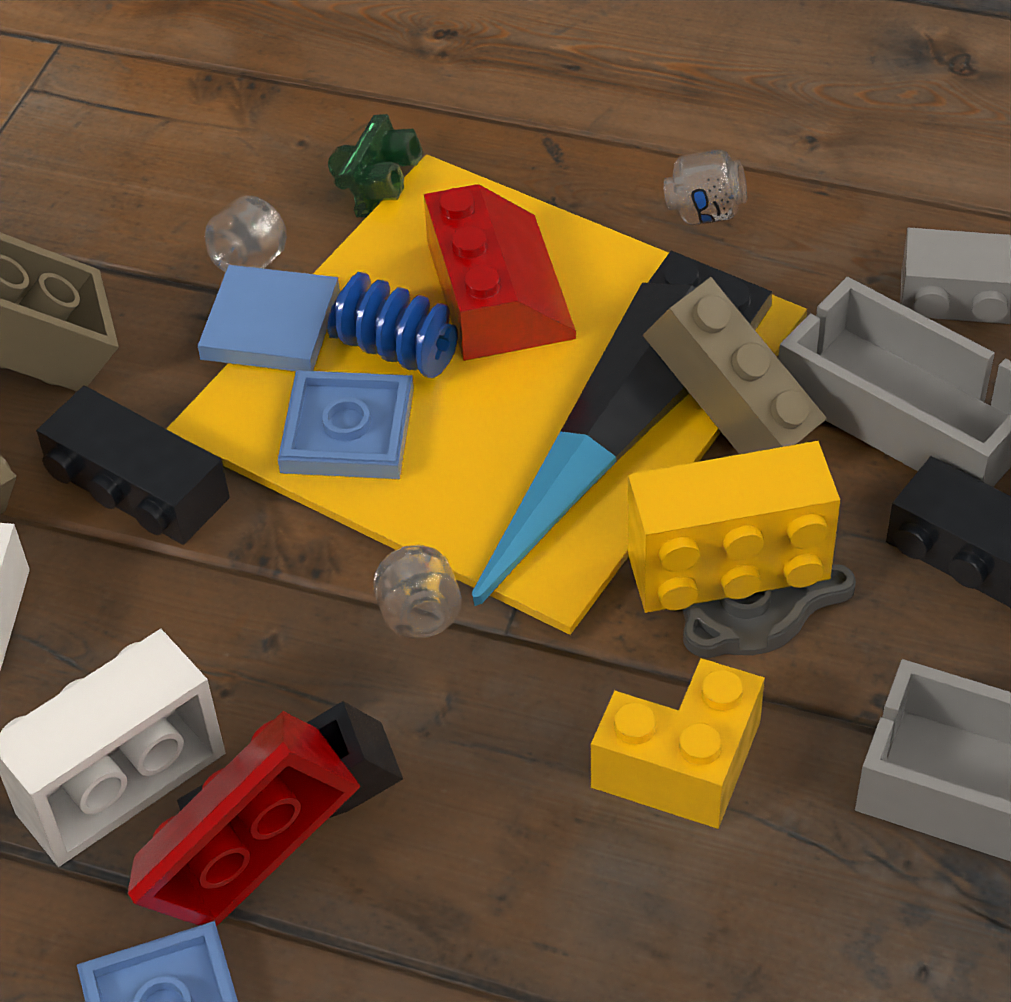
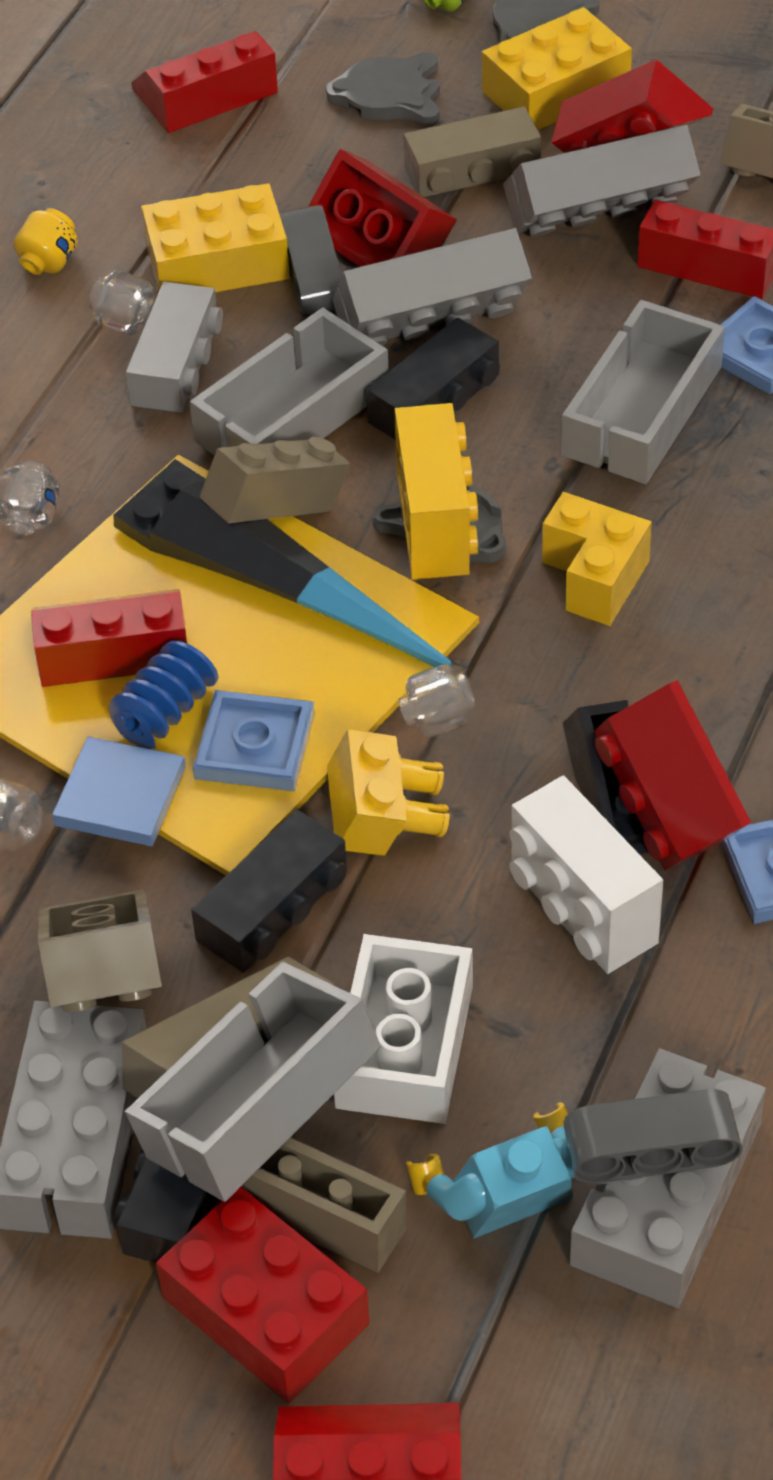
camera: 85 degrees left, 0 degrees up
(258, 529) = (368, 794): none -> yellow brick

